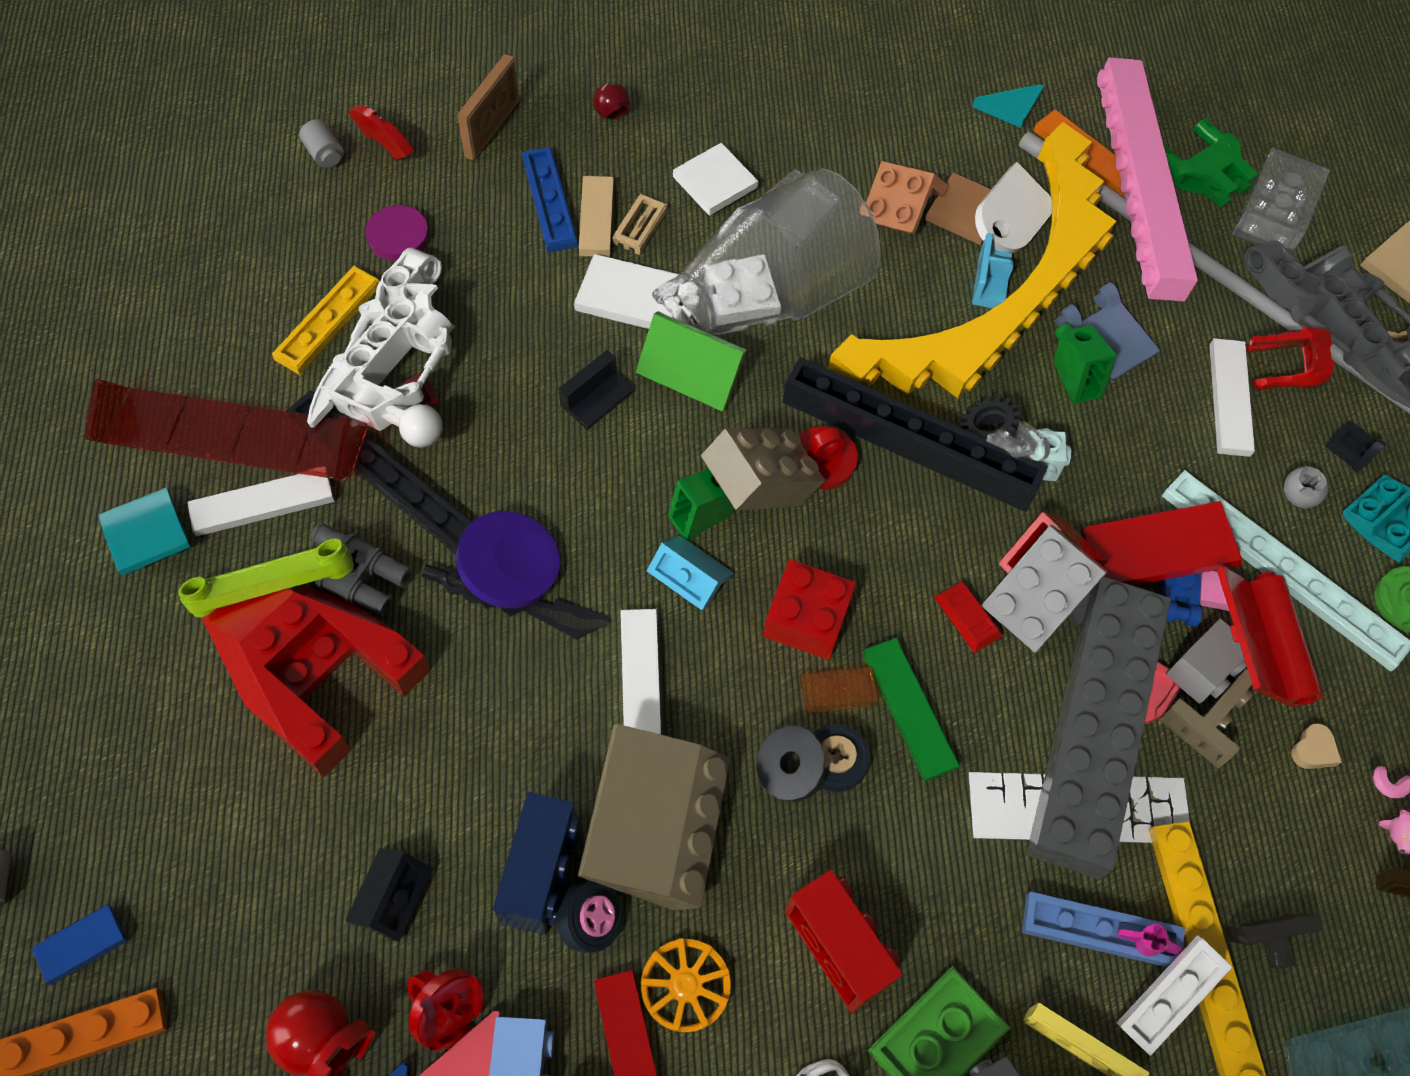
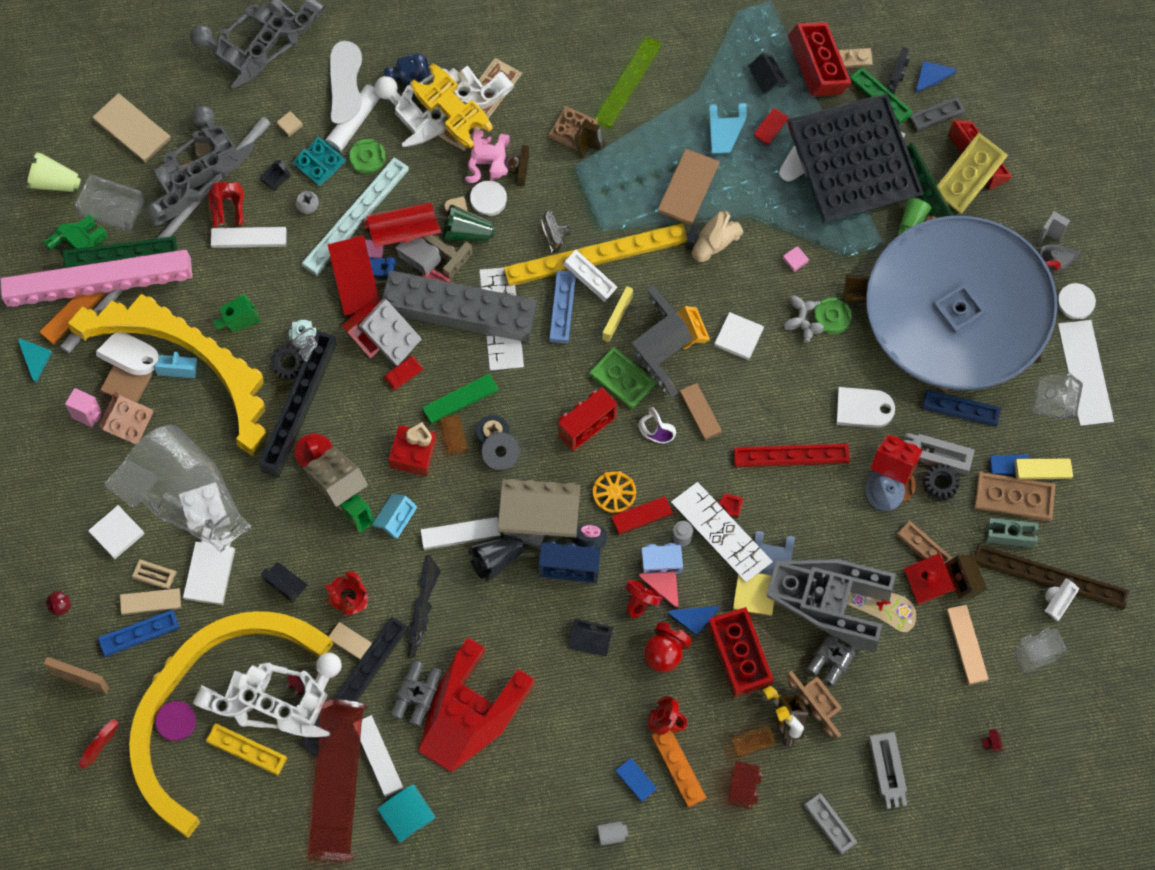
camera: 95 degrees left, 5 degrees up
(174, 1017) = (665, 715): none -> red tile
(321, 143) = (110, 781): light grey brick -> none
(326, 183) = (173, 672): none -> yellow arch
(327, 560) = (431, 732): lime piece -> none
(473, 479) = (350, 641): none -> tan tile
(507, 559) = (401, 609): dark purple piece -> none
(545, 456) = (352, 582): none -> red piece
(577, 728) = (494, 556): none -> black cone
(690, 361) = (262, 527): bright green tile -> none
(829, 610) = (419, 434): none -> tan tile
(922, 139) = (83, 407): none -> bright pink brick
(1116, 328) = (210, 299): sand blue flag -> none
(1151, 940) = (566, 284): dark pink piece -> none
(1194, 208) = (118, 251): none -> dark green tile
(1274, 753) = (466, 226): none -> dark green cone
(1326, 124) = (51, 175): none -> yellowish green cone
(1342, 811) = (488, 198): none -> white tile

